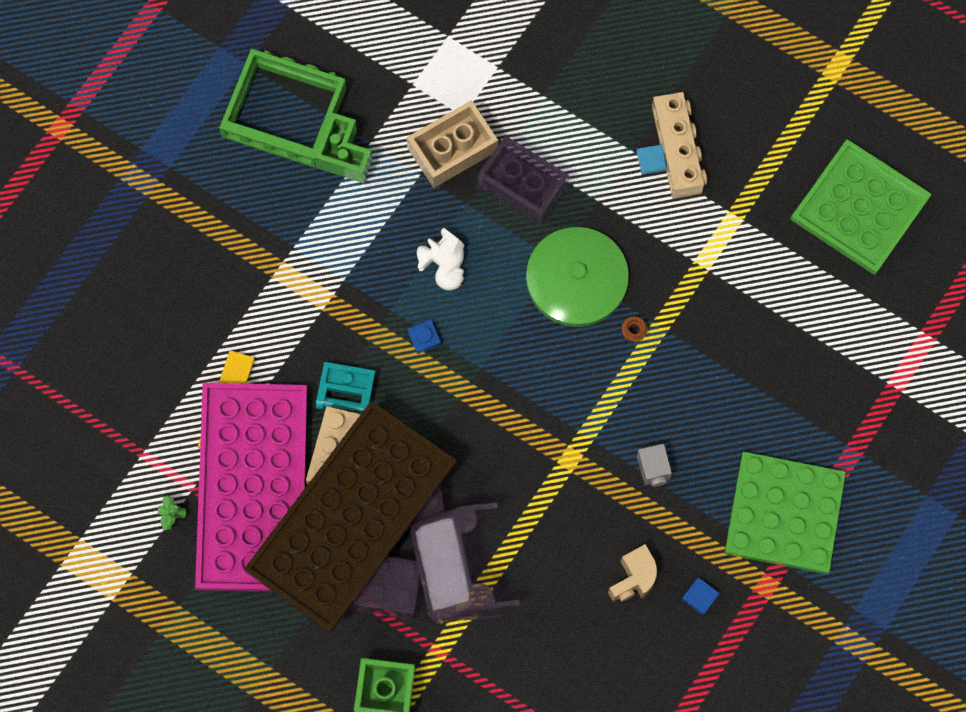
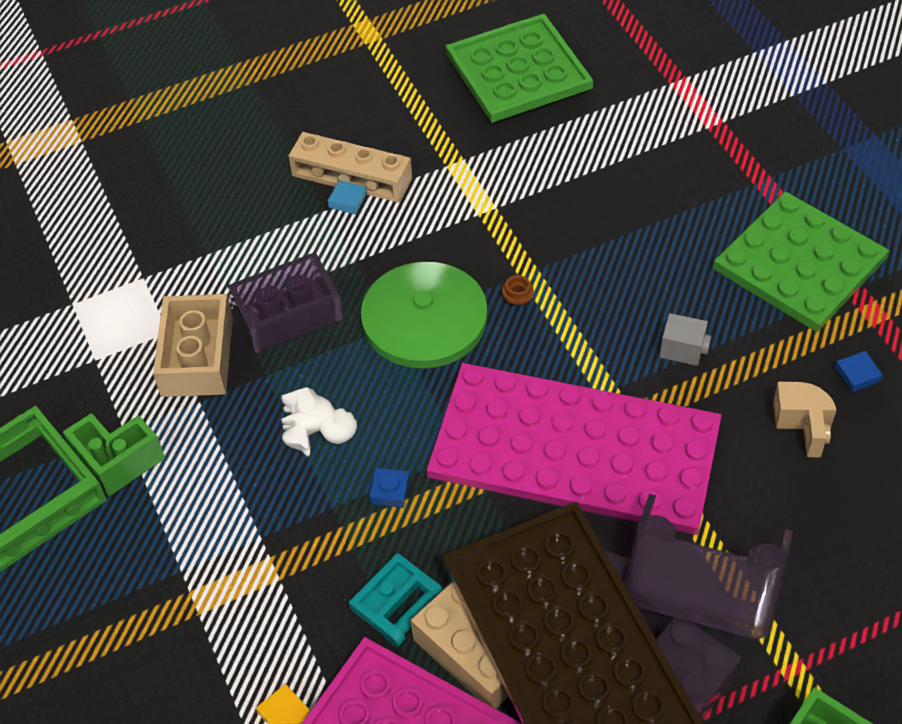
camera: 55 degrees left, 20 degrees down
(526, 438) = (576, 445): none -> dark pink plate

